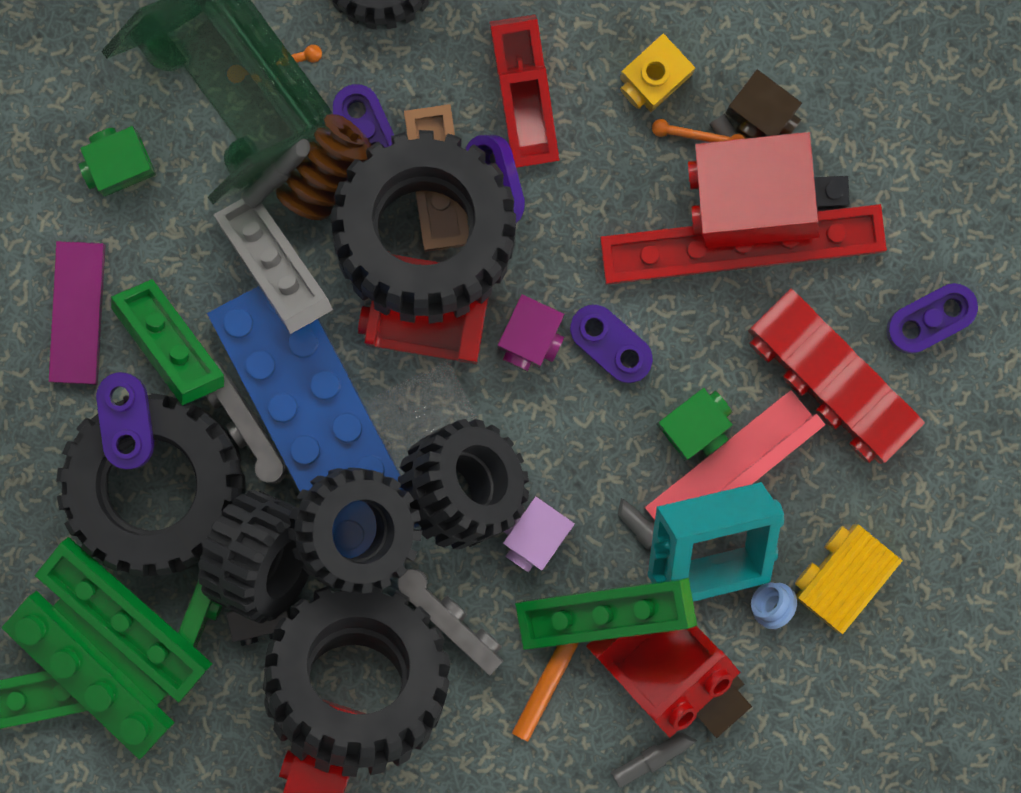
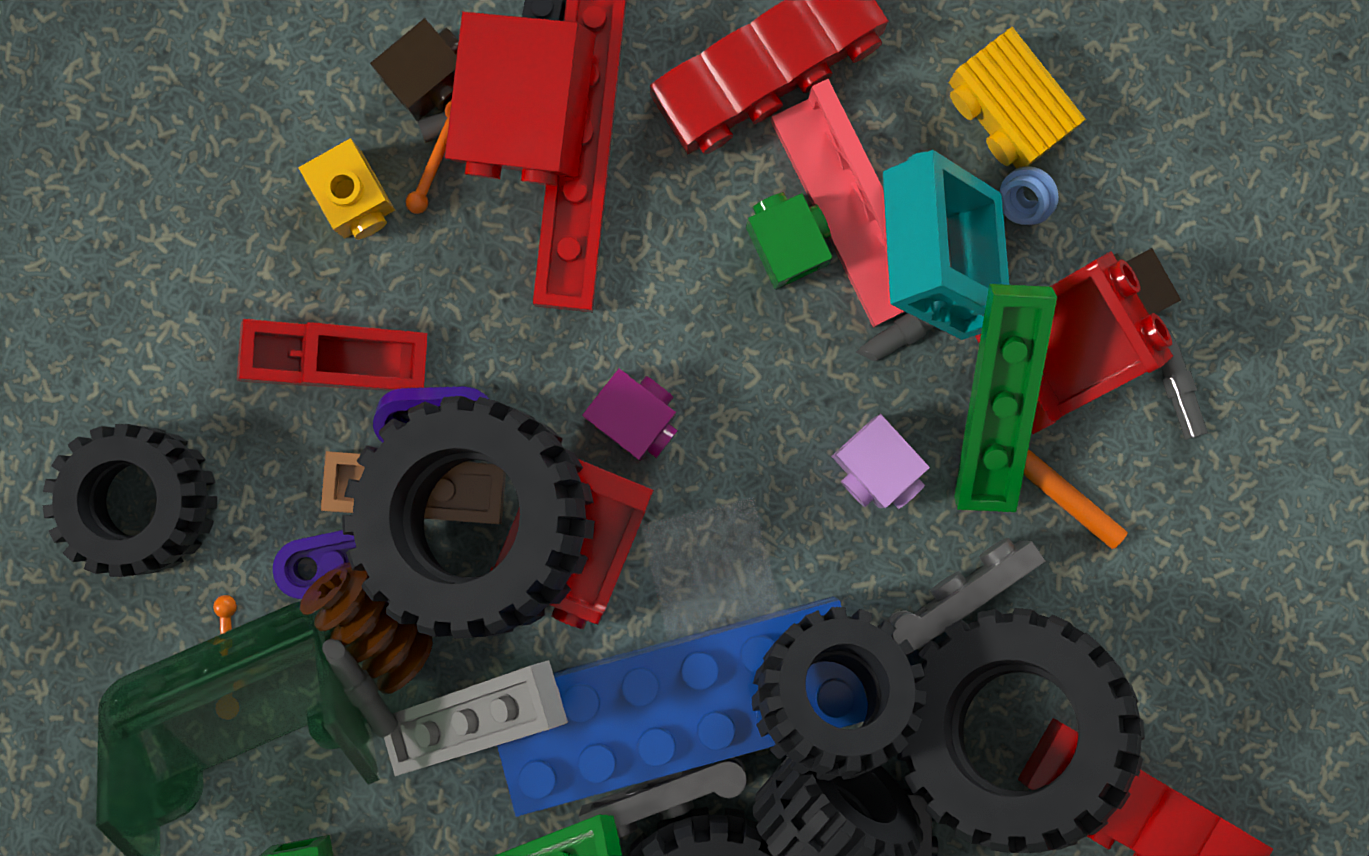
camera: 75 degrees left, 0 degrees up
(490, 471) = (797, 502): black tyre -> none
(611, 344) = (667, 321): dark purple plate -> none

